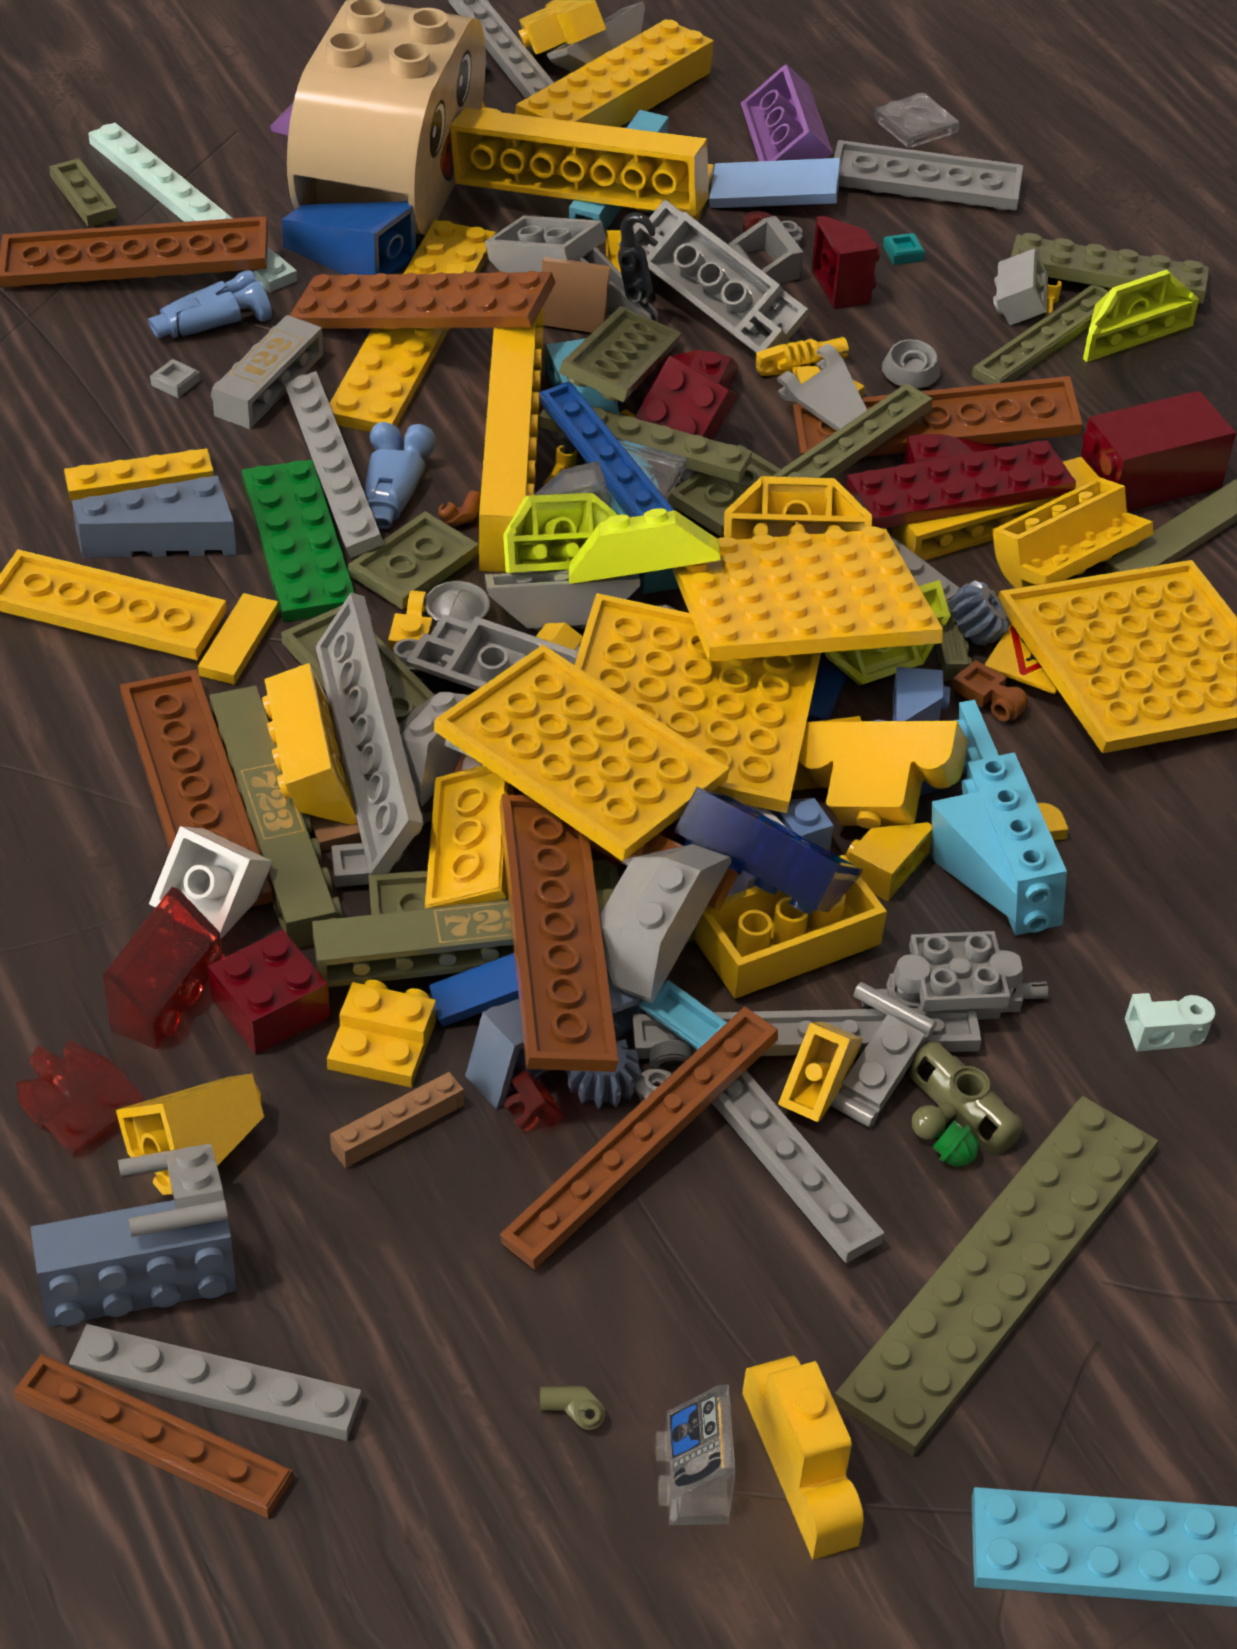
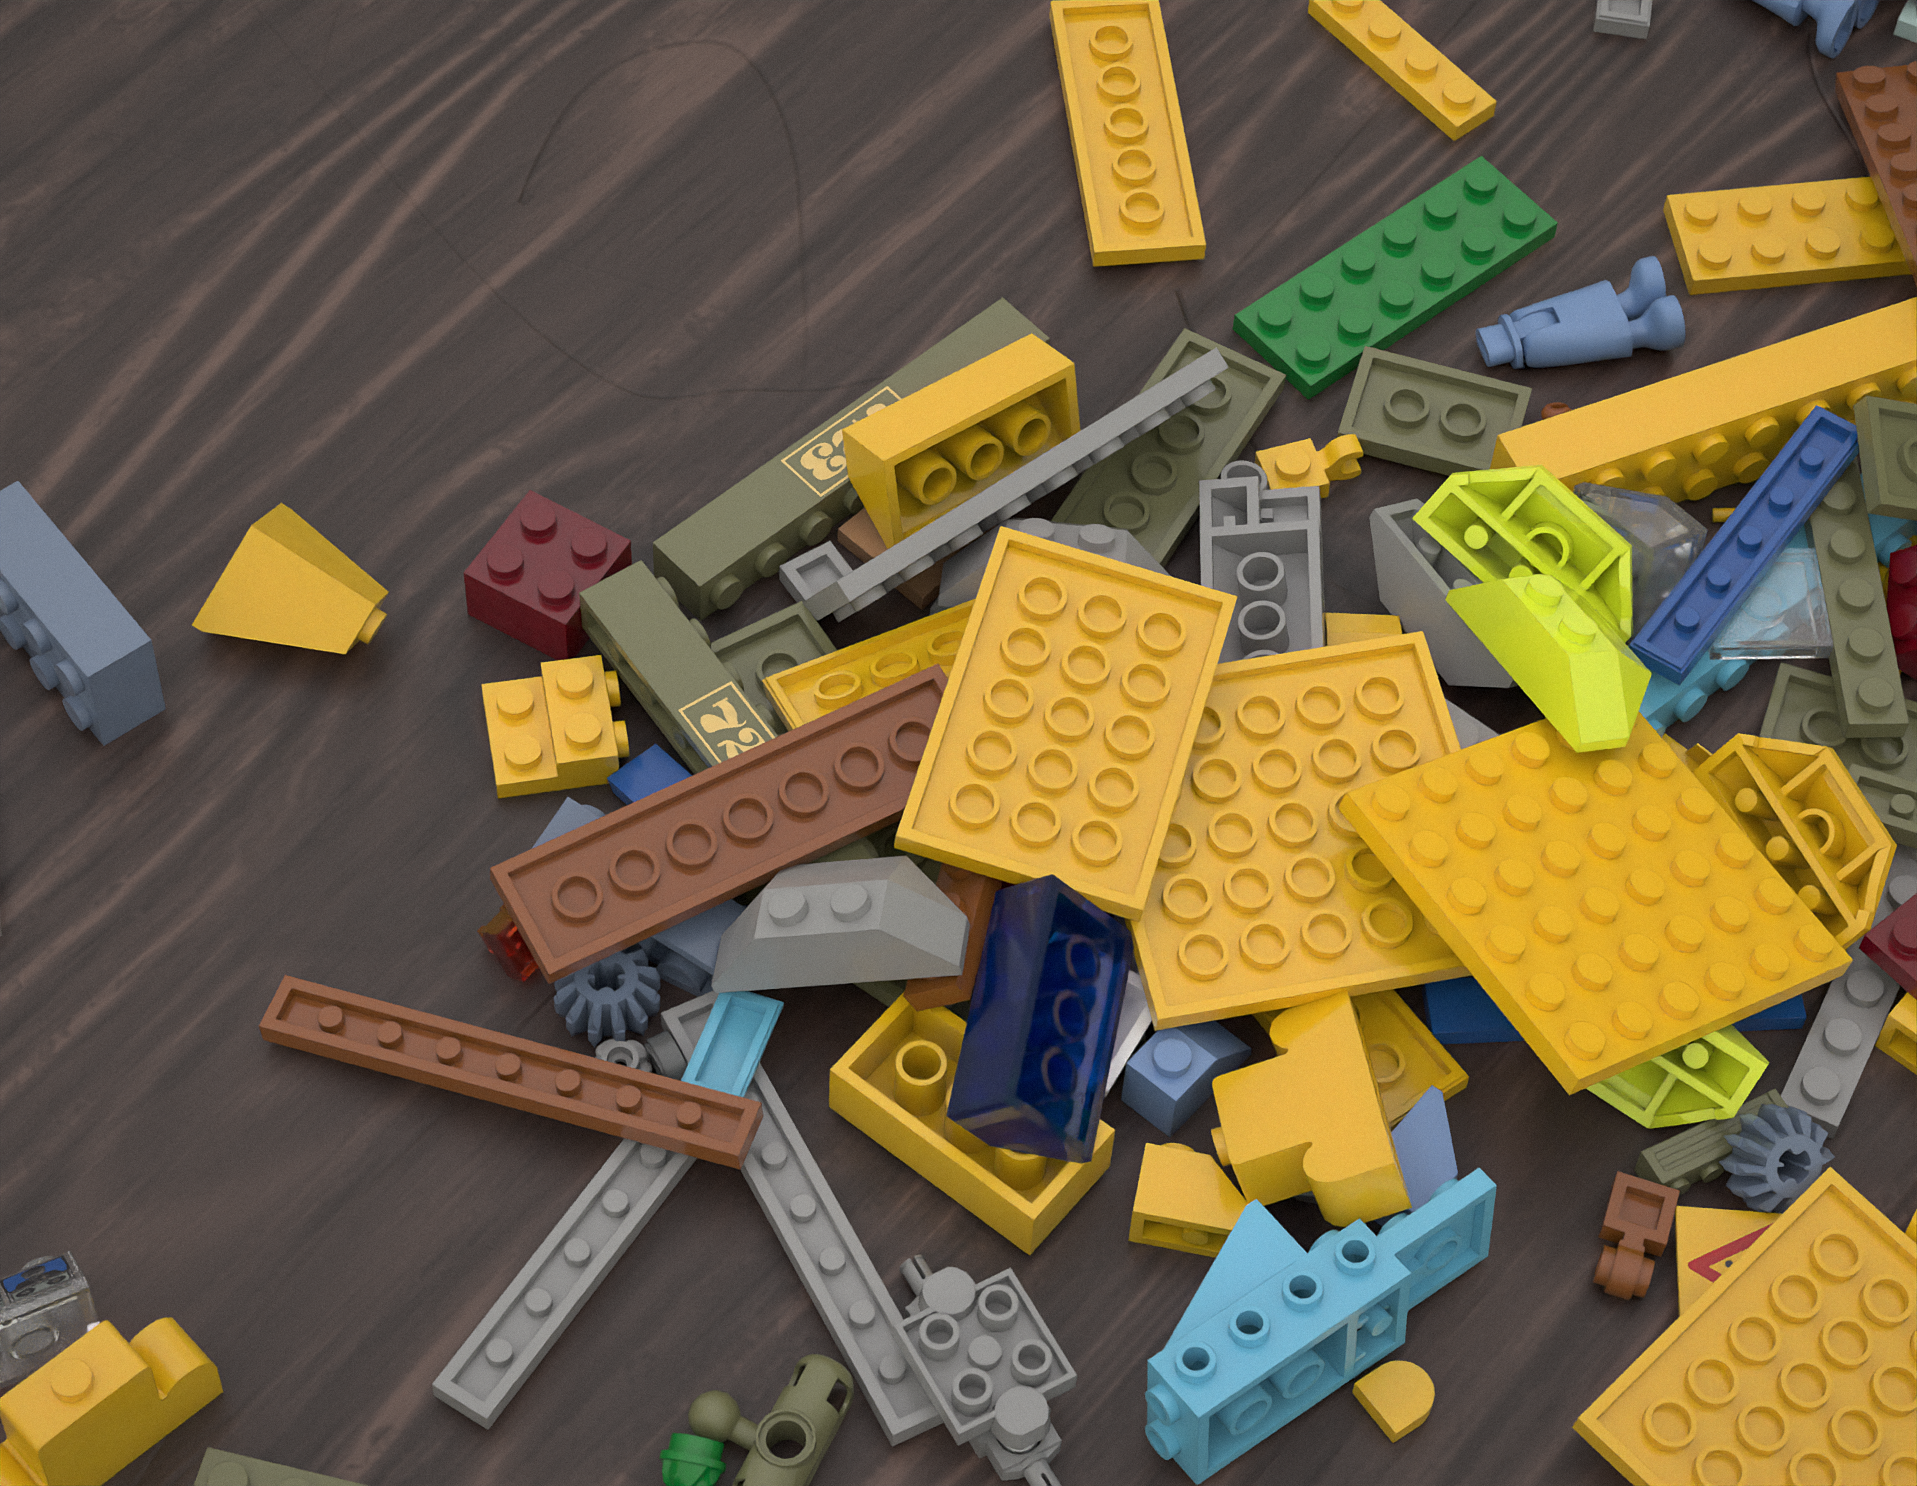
camera: 65 degrees right, 10 degrees up
(75, 1094) = (301, 458): clear red plate -> none
(156, 520) = (1311, 111): sand blue wedge -> none
(161, 970) = (502, 440): clear red slope -> none
(187, 761) = (846, 353): dark orange plate -> none
(193, 1184) = (142, 605): light grey plate -> none
(213, 875) = (677, 432): white slope -> none
(238, 638) = (1160, 292): yellow tile -> none
(260, 375) = (1700, 98): light grey brick -> none
(334, 465) = (1556, 247): light grey plate -> none
(397, 1119) = (425, 799): medium nougat piece -> none
(457, 600) = (1360, 489): light grey hat -> none
(576, 1402) = (79, 1162): olive arm -> none
(819, 1069) = (723, 1240): yellow slope -> none
(884, 1058) = (789, 1317): light grey plate -> none
(919, 695) = (1531, 1140): medium blue slope -> none

